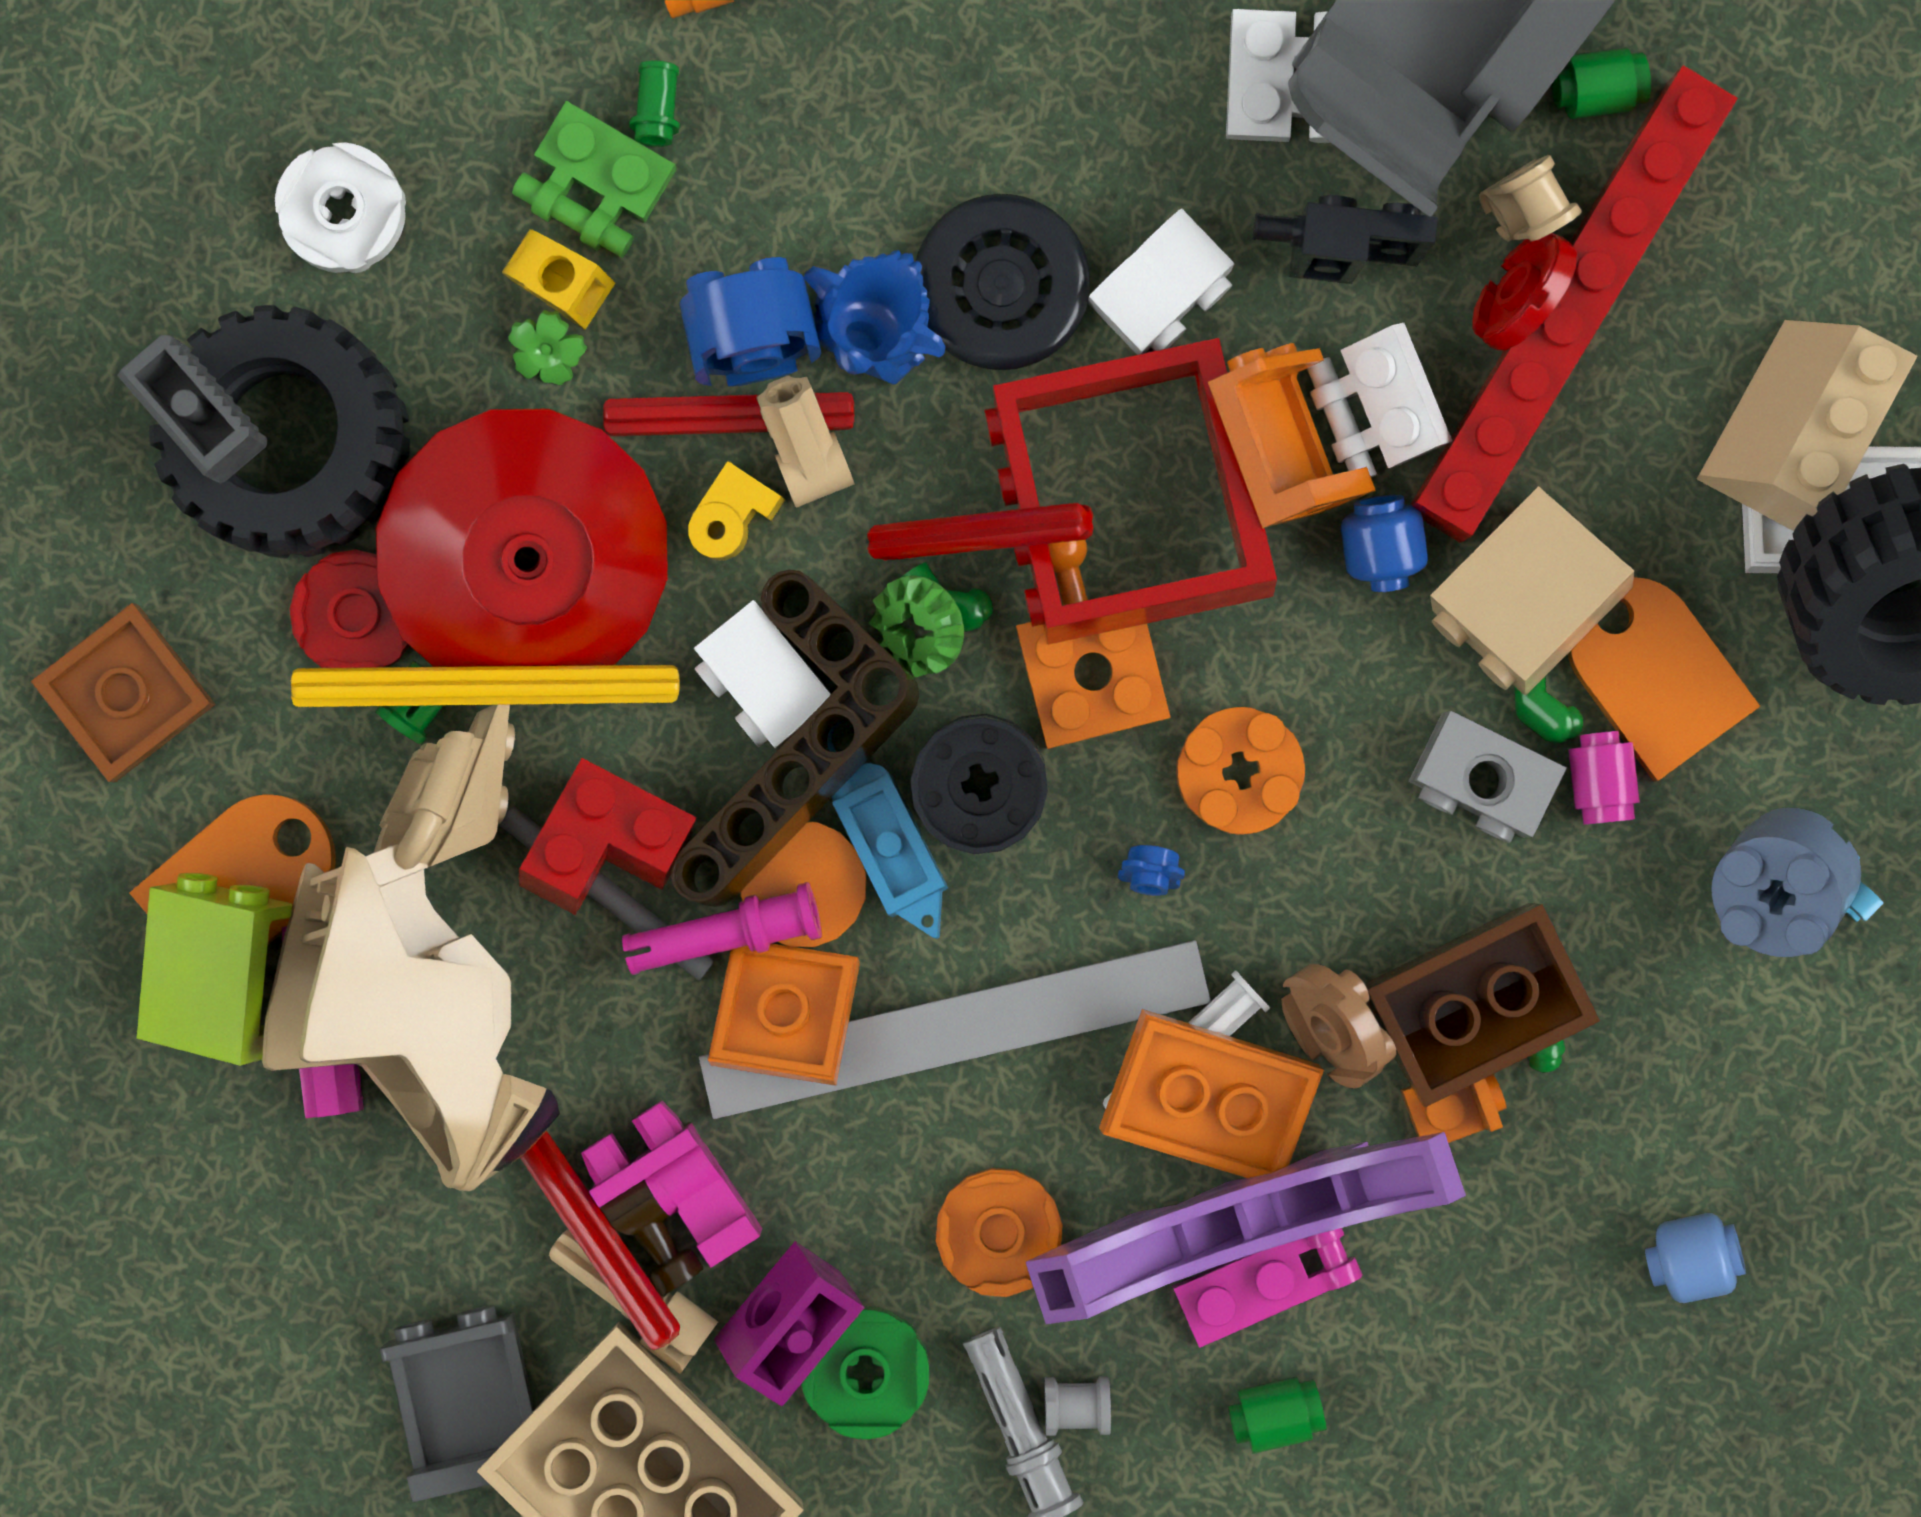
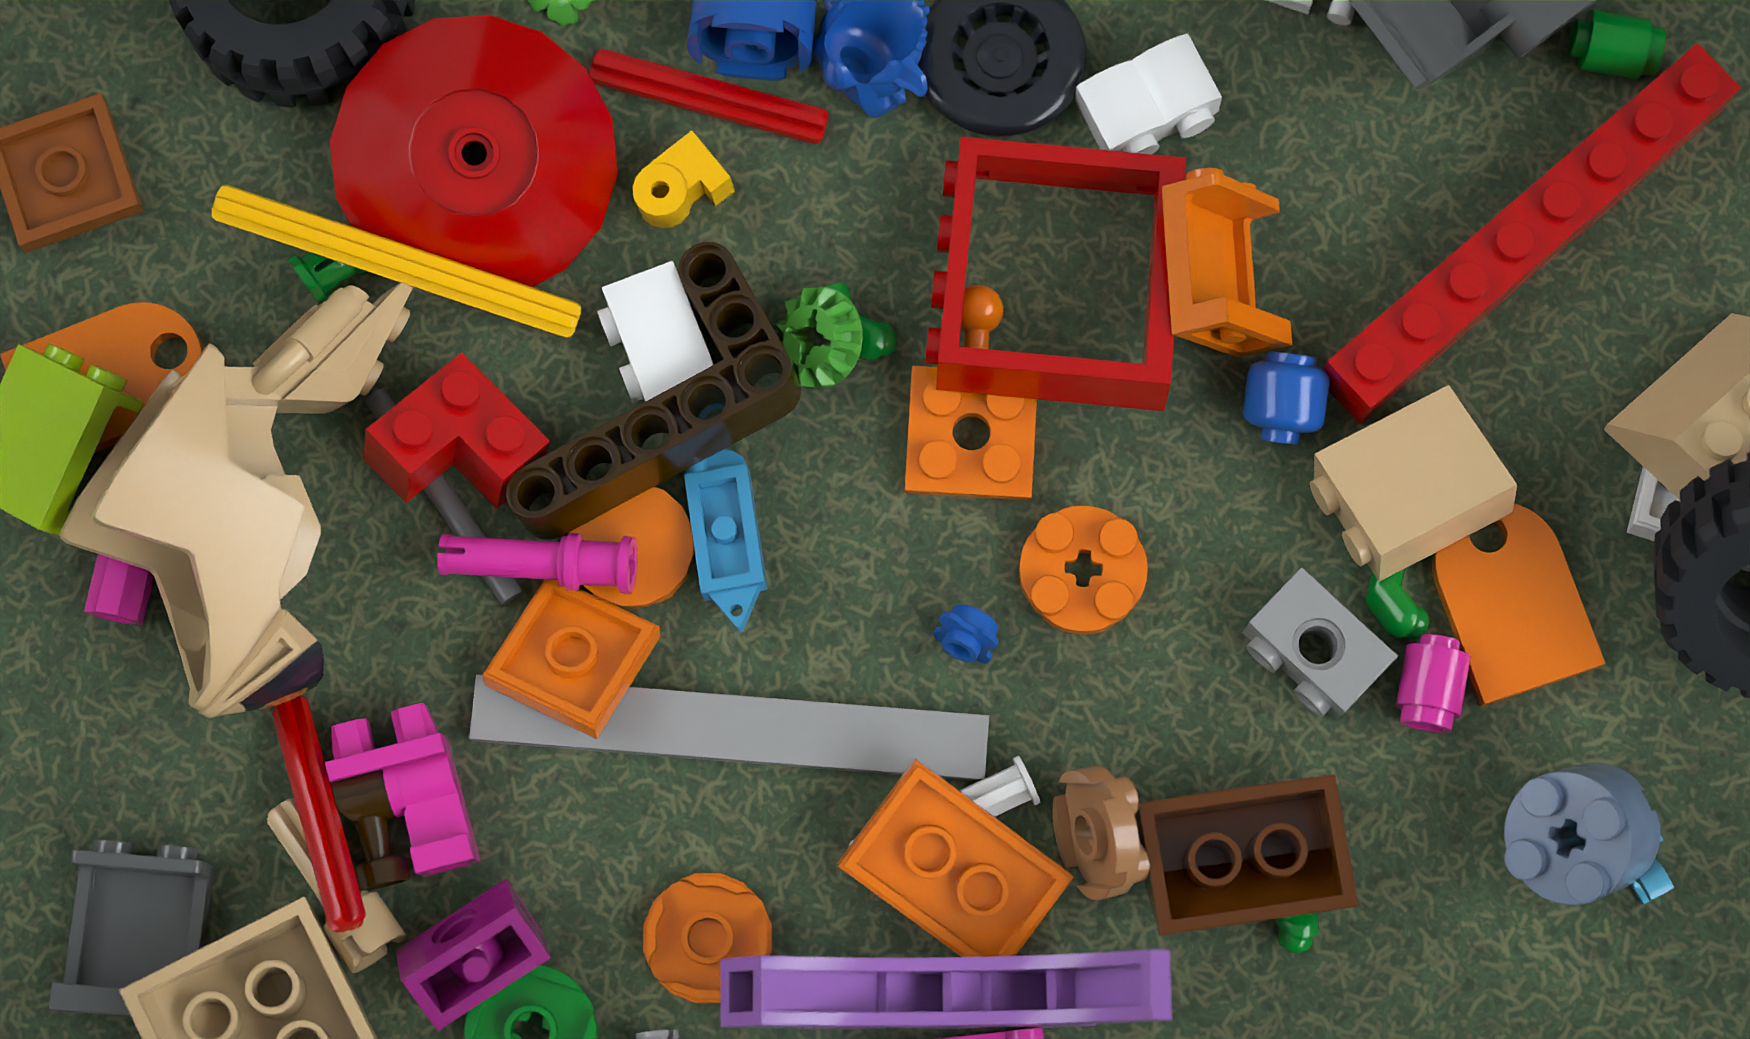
camera: 20 degrees right, 10 degrees down
(369, 631) = (306, 179): red tile -> none
(806, 449) = (768, 151): tan piece -> none
(961, 816) = (802, 468): black wheel -> none
(981, 531) = (905, 260): red axle -> none
(1337, 238) = (1333, 100): black plate -> none
(1393, 394) = (1336, 264): white plate -> none
(1460, 1113) = (1199, 957): orange bracket -> none
(1526, 294) = (1493, 200): red tile -> none
(1529, 202) = (1515, 121): tan piece -> none

